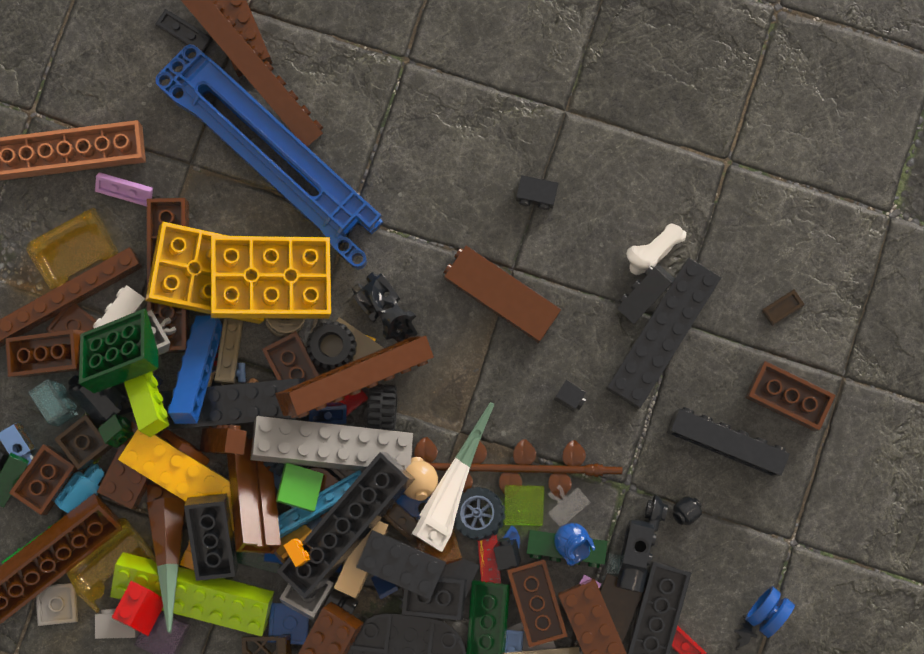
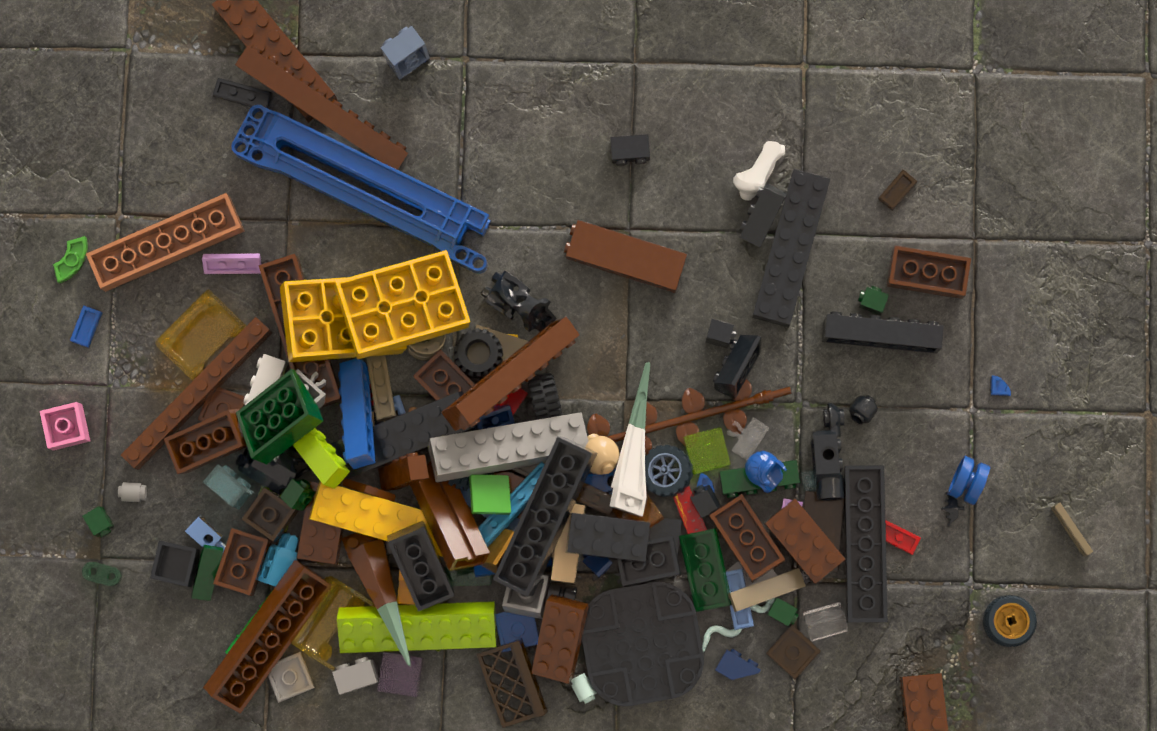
camera: 10 degrees left, 0 degrees up
(138, 608) = (372, 653): red slope -> none
(296, 552) = (507, 555): light orange piece -> none
(348, 35) = (405, 52): none -> sand blue brick
(578, 431) = (737, 365): none -> black slope
(728, 407) = (873, 300): none -> dark green brick
(825, 528) = (999, 387): none -> blue tile

